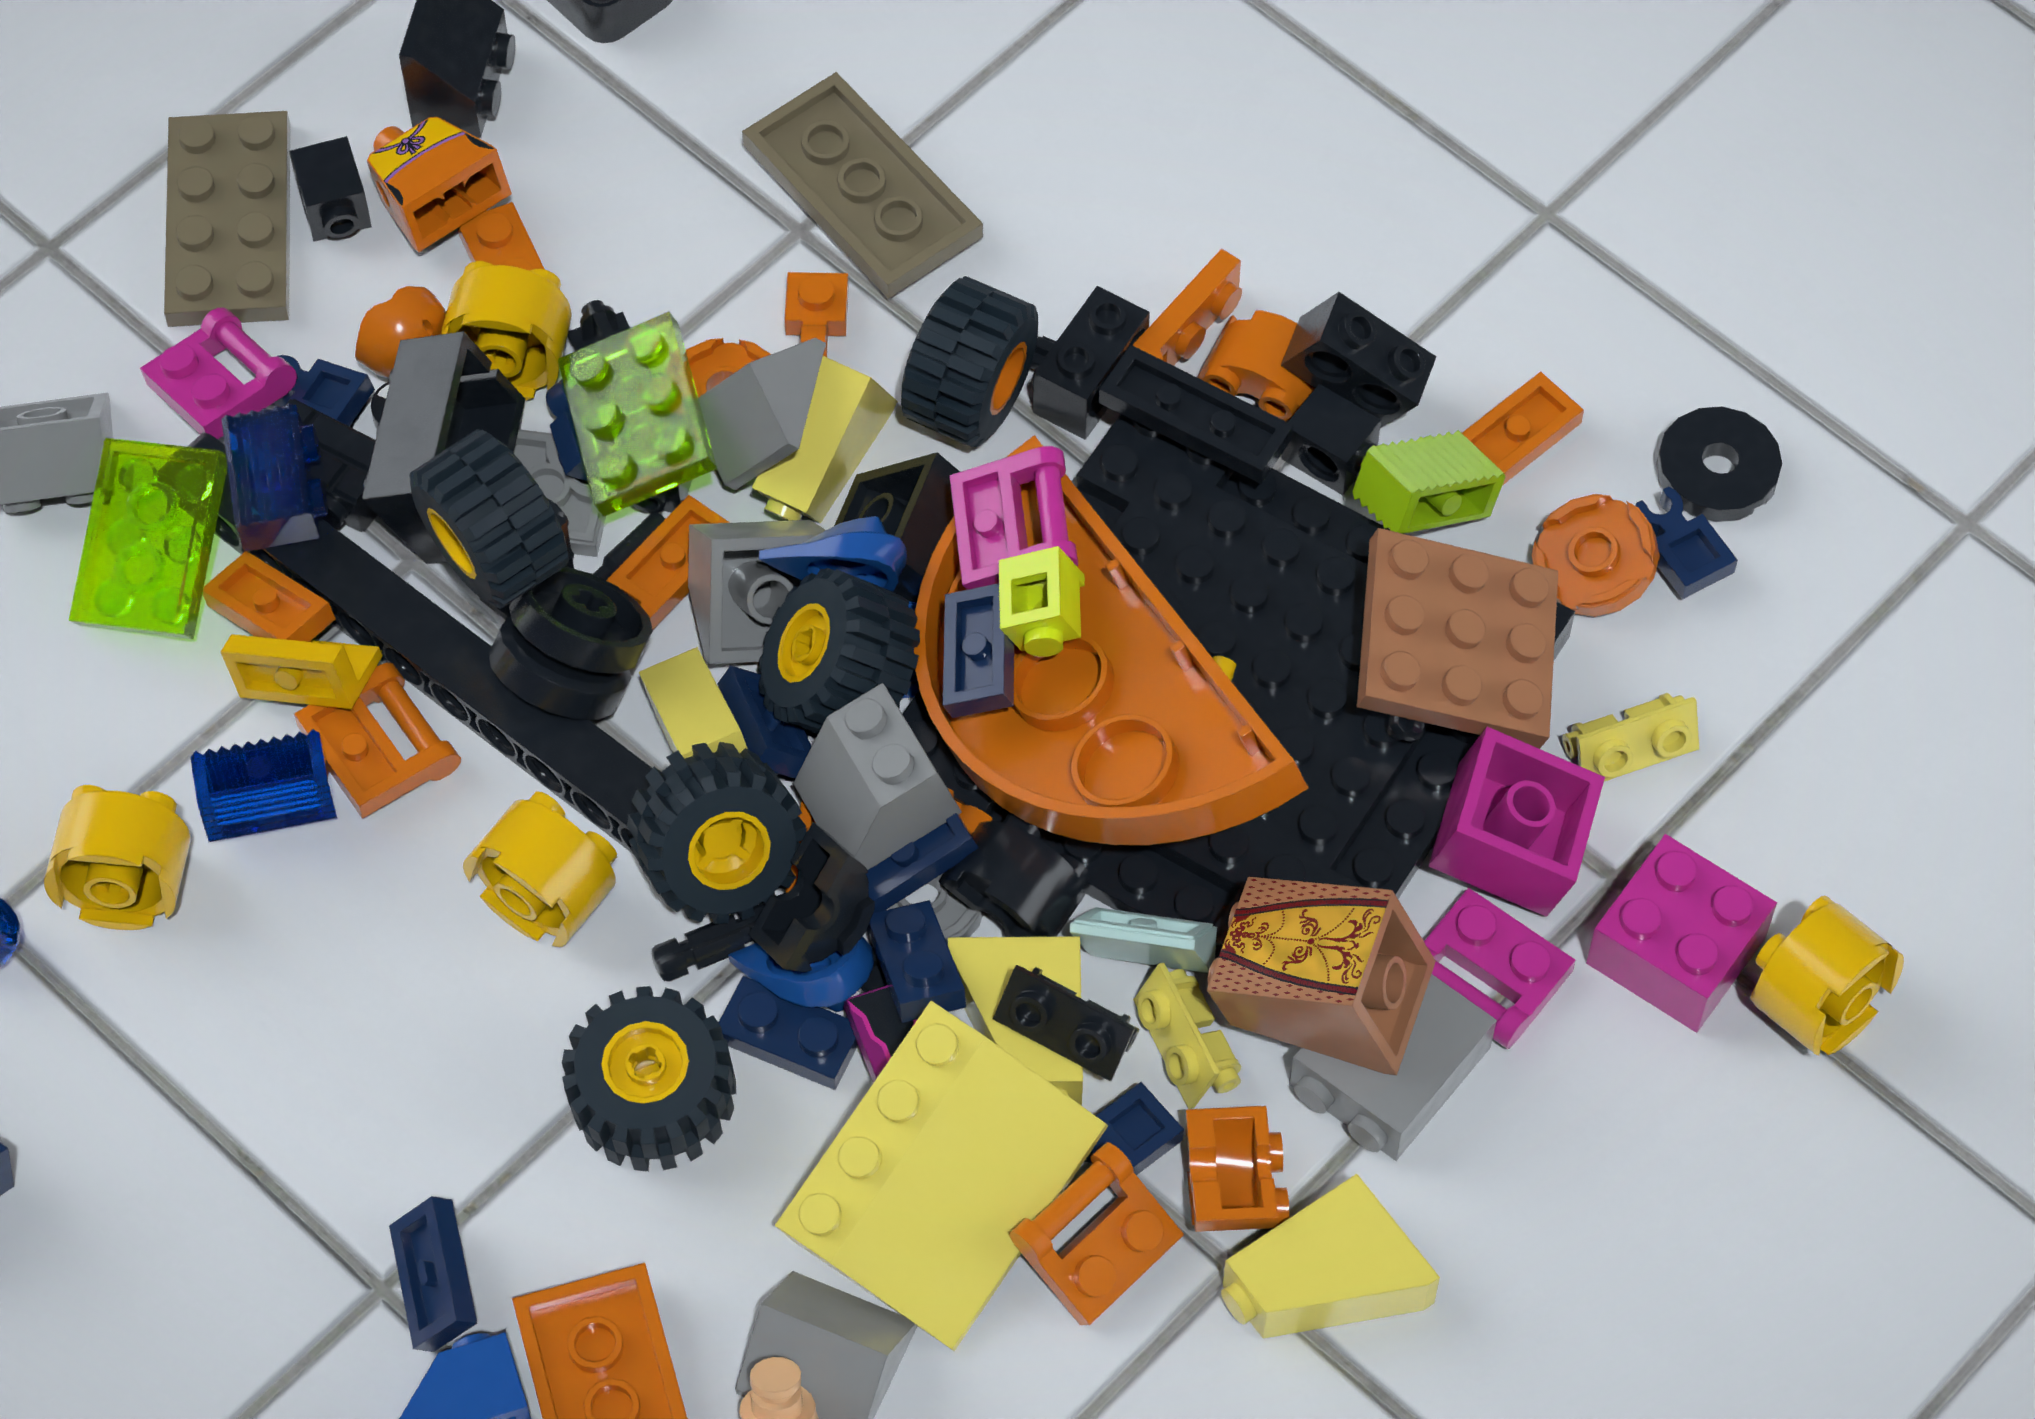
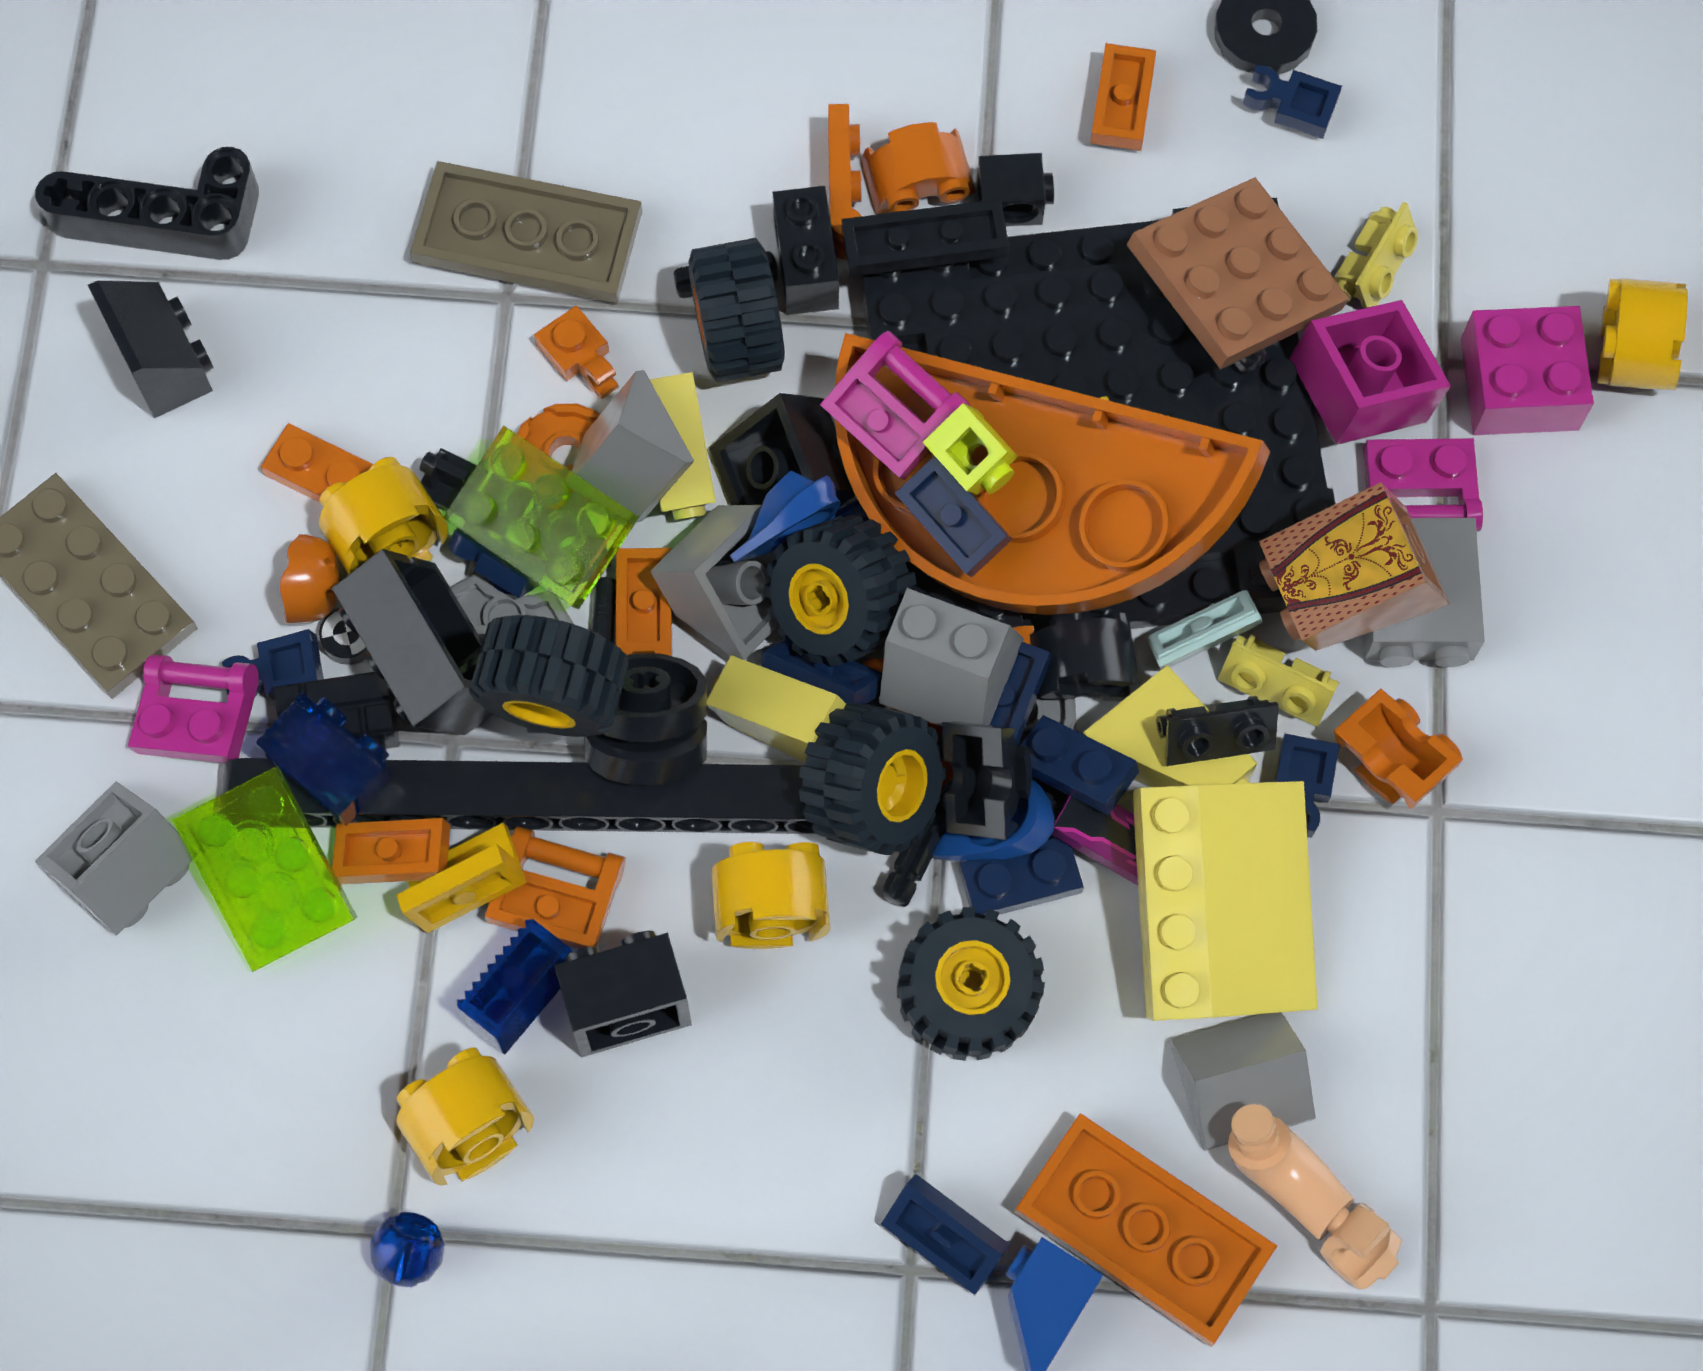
camera: 40 degrees left, 10 degrees up
(330, 189) = (147, 509): black brick -> none
(341, 856) = (623, 992): none -> black brick
(435, 178) = (218, 446): orange torso -> none
(1107, 1252) = (1362, 860): orange plate -> none
(1329, 1268) = (1506, 761): light yellow slope -> none
(1359, 358) = (989, 119): black brick -> none
(1428, 483) = (1108, 176): lime brick -> none
(1601, 553) = (1249, 141): orange tile -> none

